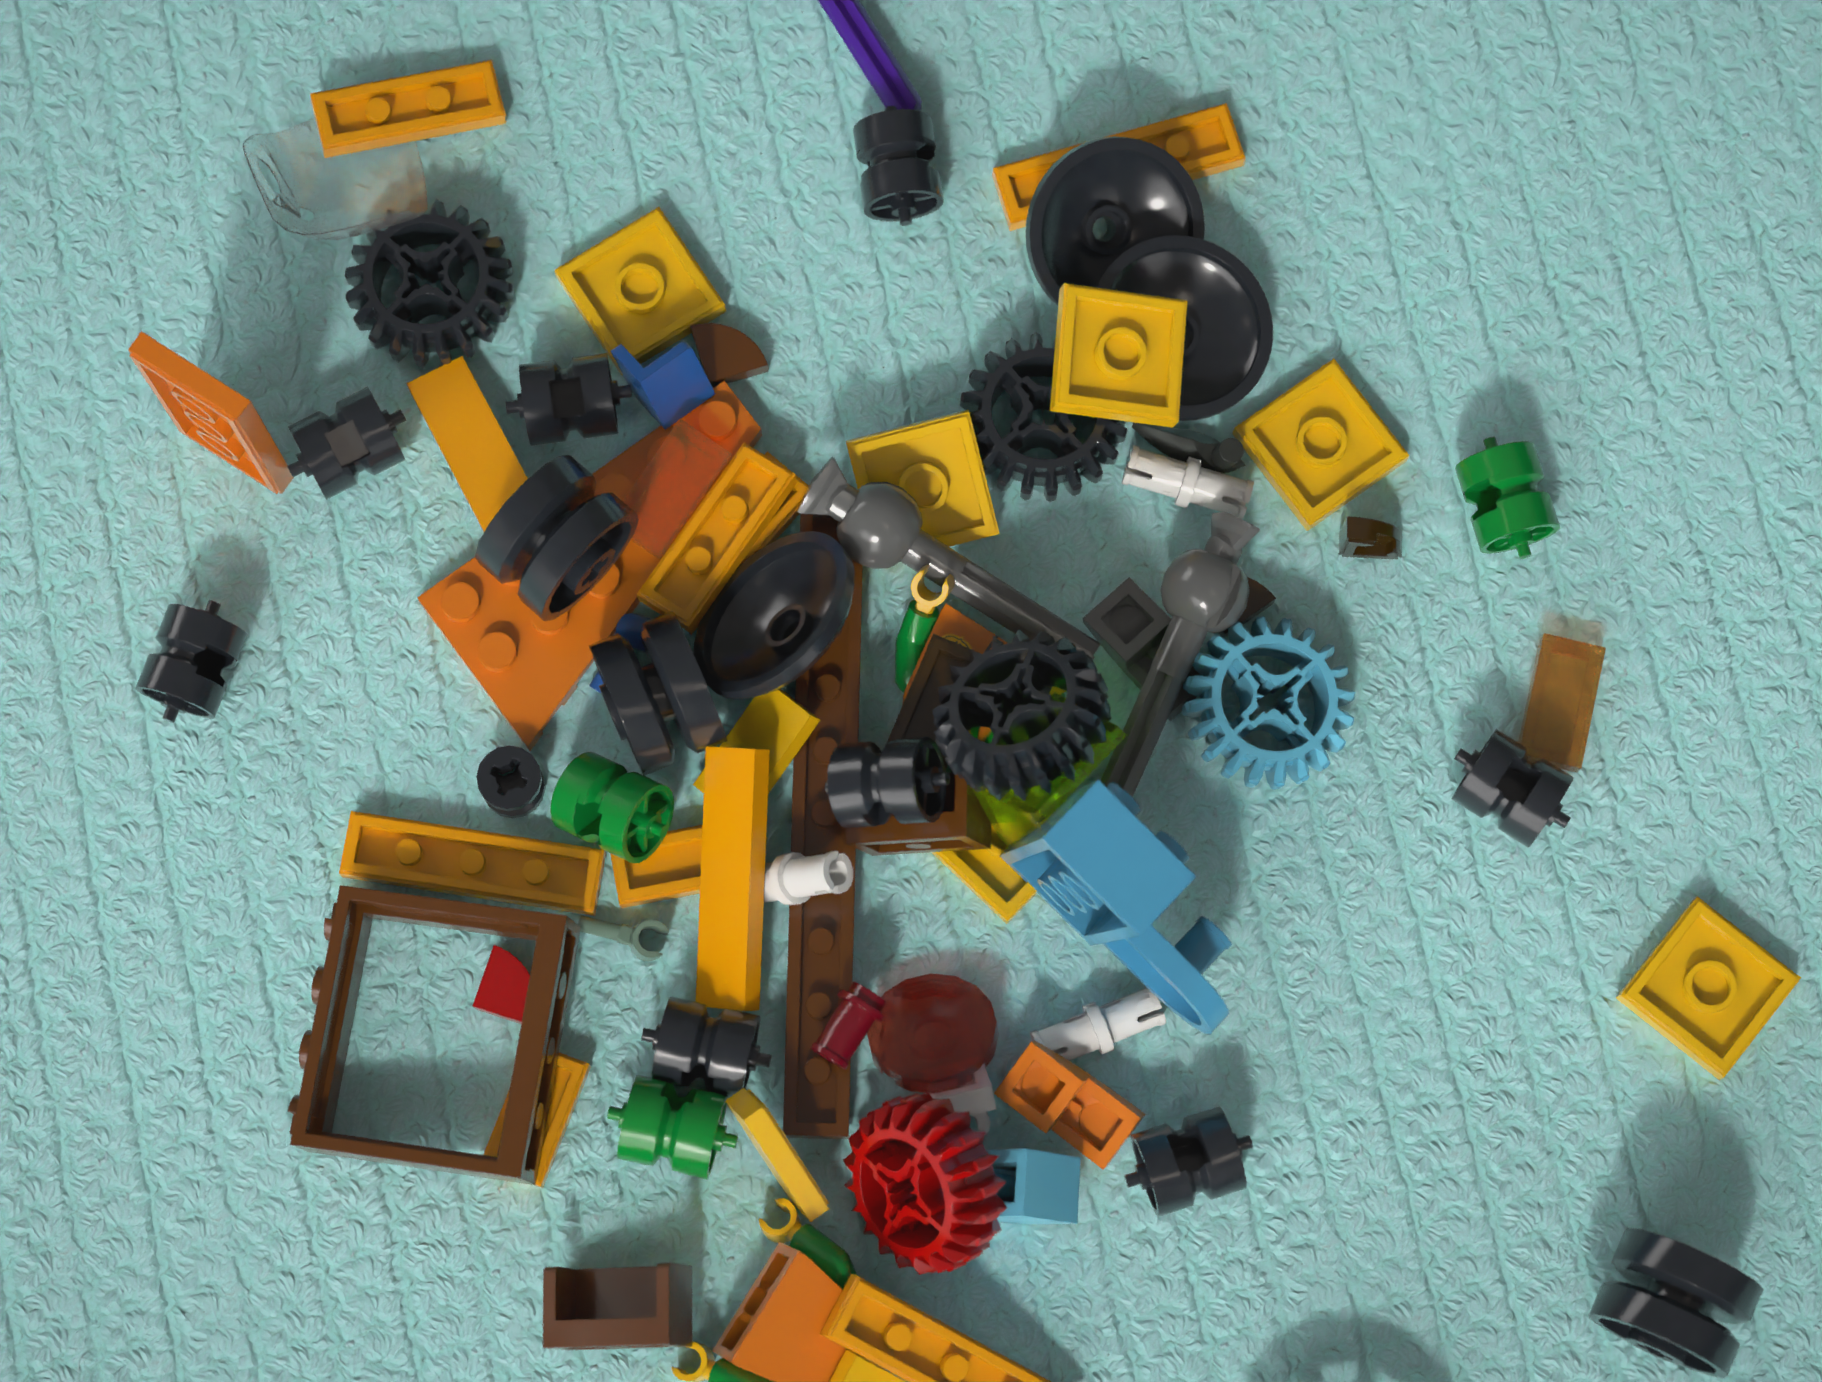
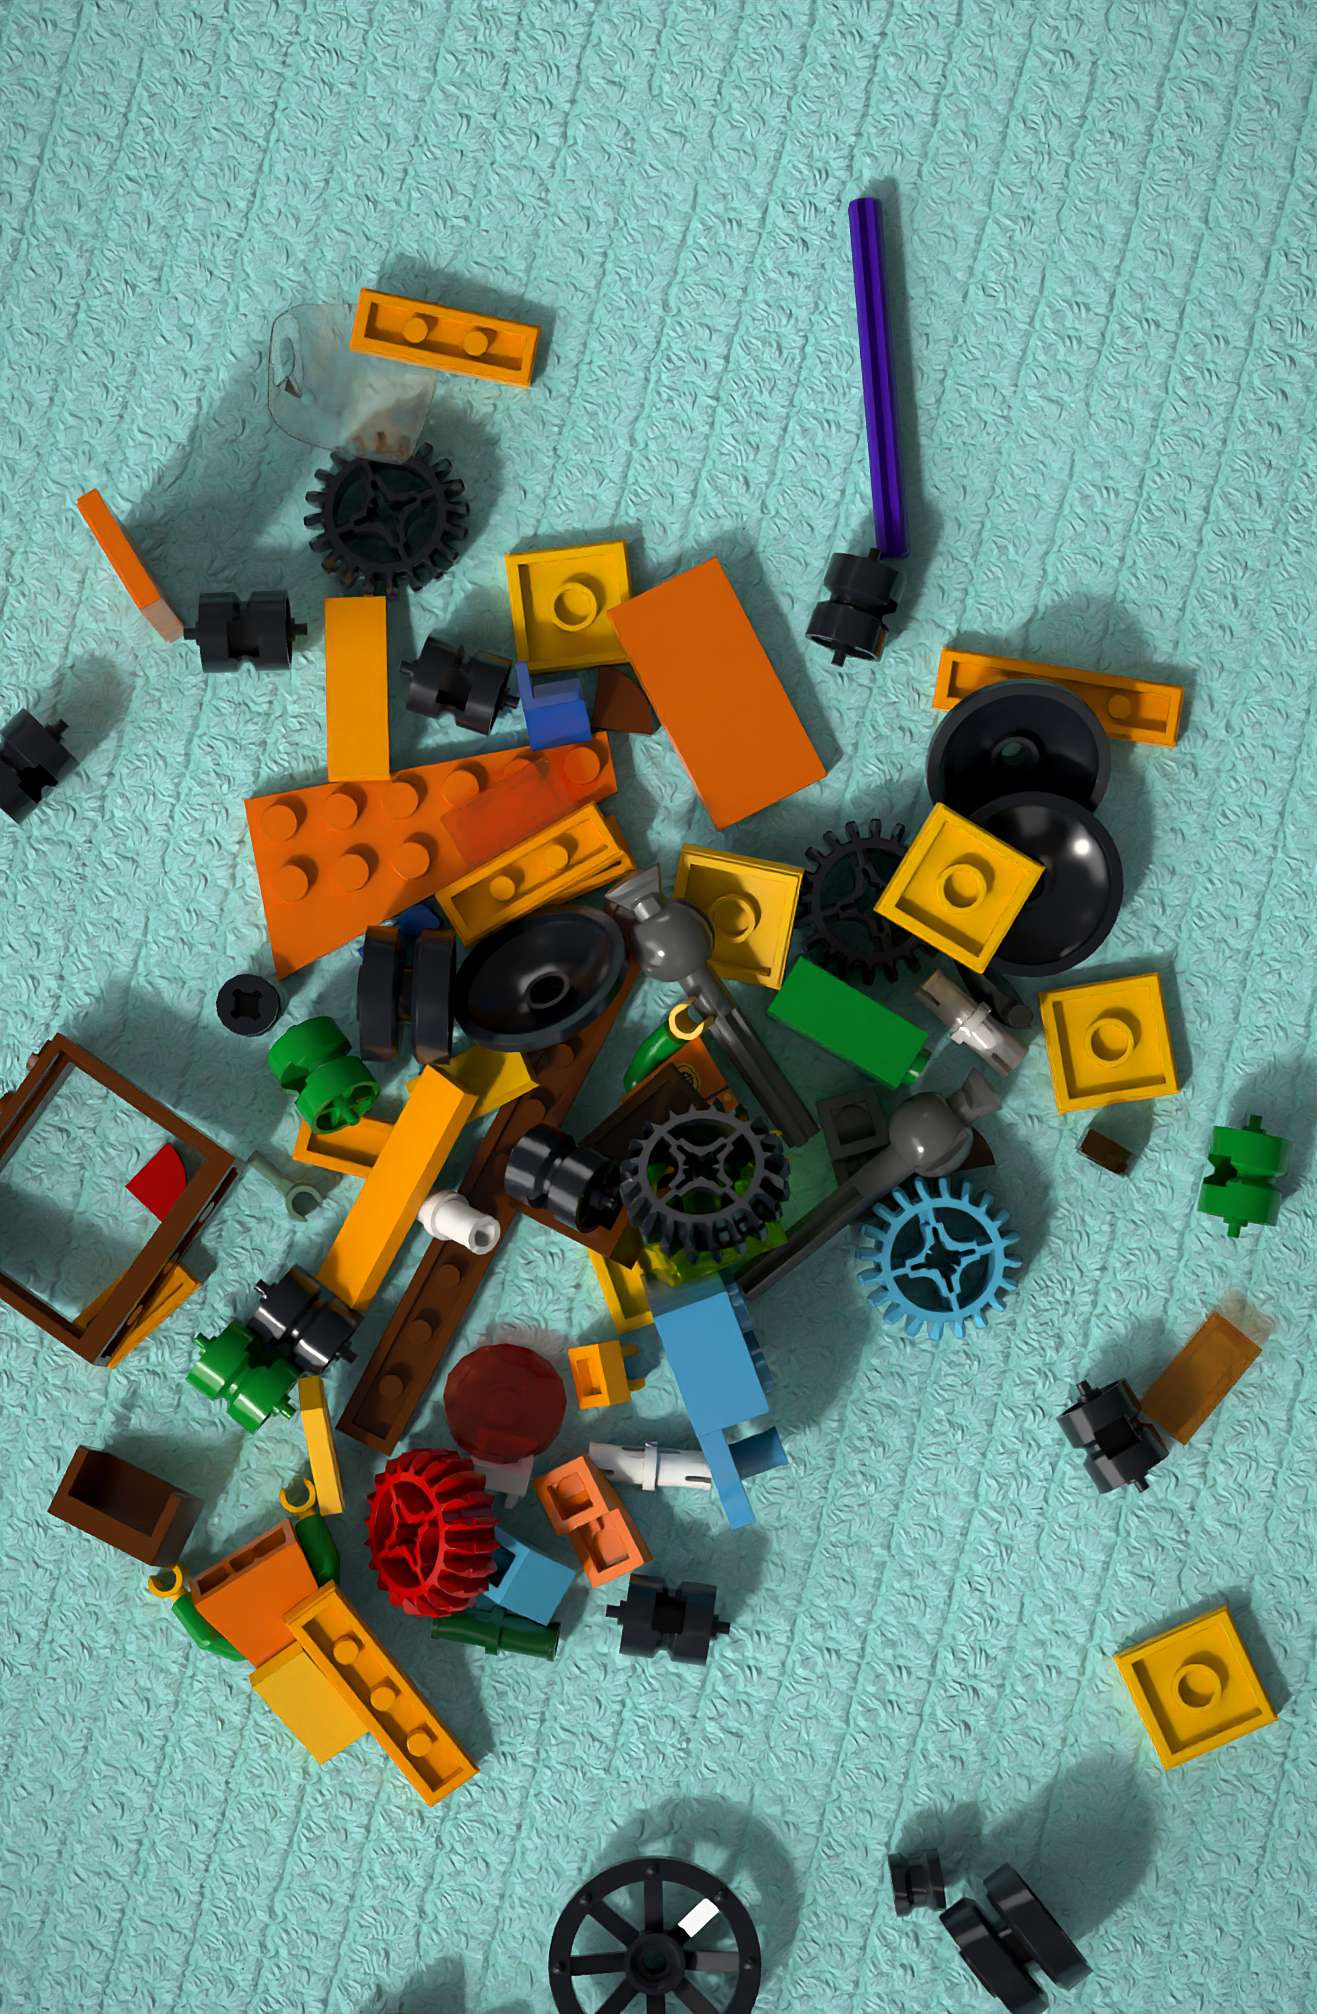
camera: 30 degrees right, 10 degrees up
(472, 863) = (183, 1059): light orange tile -> none
(556, 537) = (379, 811): black wheel -> none
(809, 301) = (716, 694): none -> orange tile
(849, 1024) = (434, 1364): dark red pin -> none
(1010, 962) = (601, 1373): none -> light orange tile
(1032, 1255) = (499, 1632): none -> dark green pin
(1081, 528) = (850, 1026): none -> green brick
(1549, 1297) = (917, 1882): none -> black wheel

